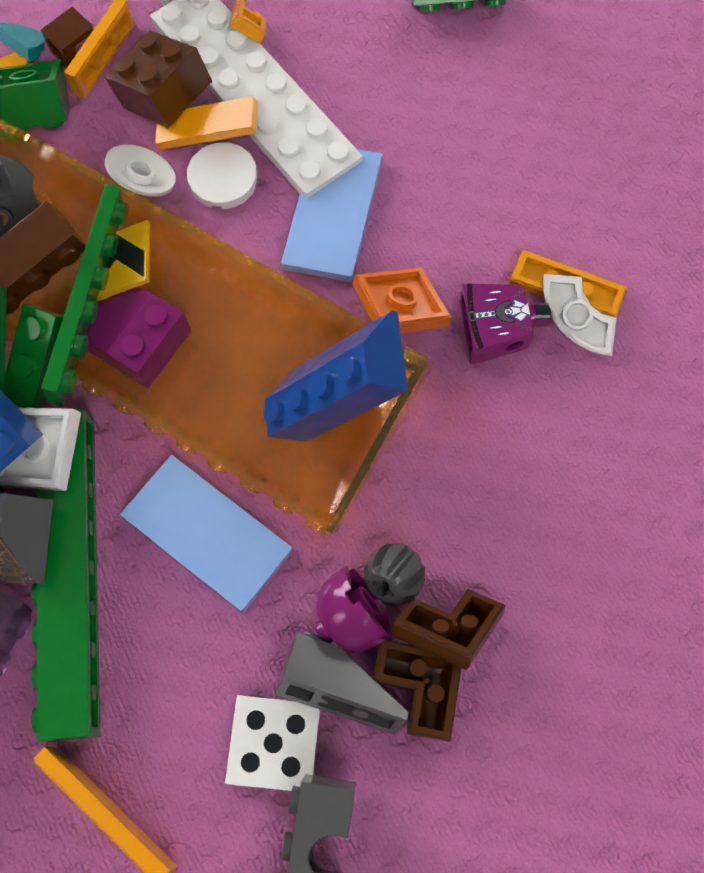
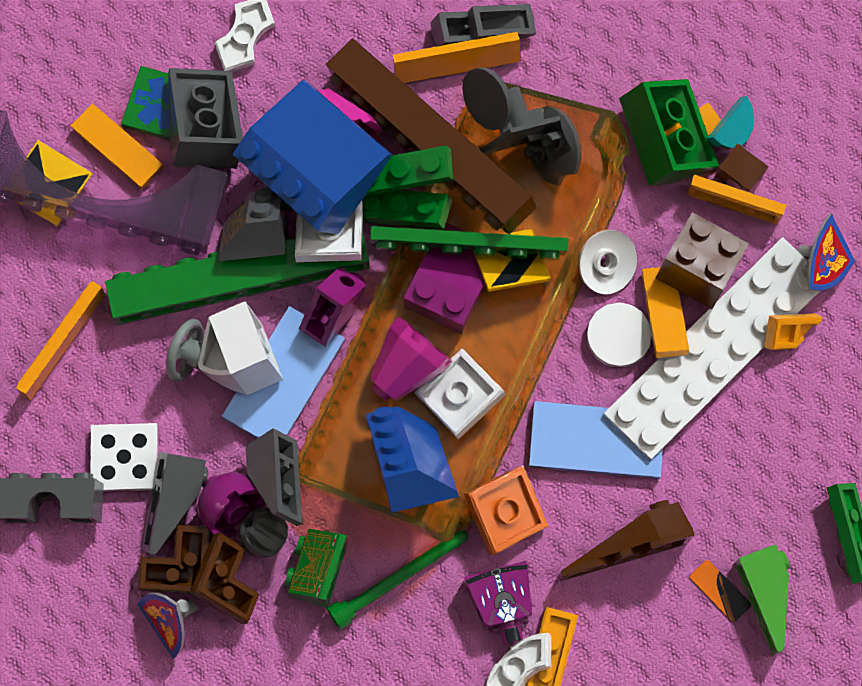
camera: 75 degrees right, 5 degrees up
(123, 447) = (338, 291): none -> magenta torso
(165, 580) = (230, 352): none -> white piece
(212, 382) = (406, 362): none -> dark pink cone
(260, 333) = (460, 394): none -> white tile
(321, 547) = (275, 473): none -> dark grey slope
(442, 171) = (650, 533): none -> reddish brown wedge
(445, 511) = (317, 566): none -> green slope
(492, 706) = (167, 619): none -> shield
(498, 494) = (344, 612): none -> green piece
(505, 121) = (720, 590): none -> sticker
(517, 71) = (766, 584): none -> bright green slope

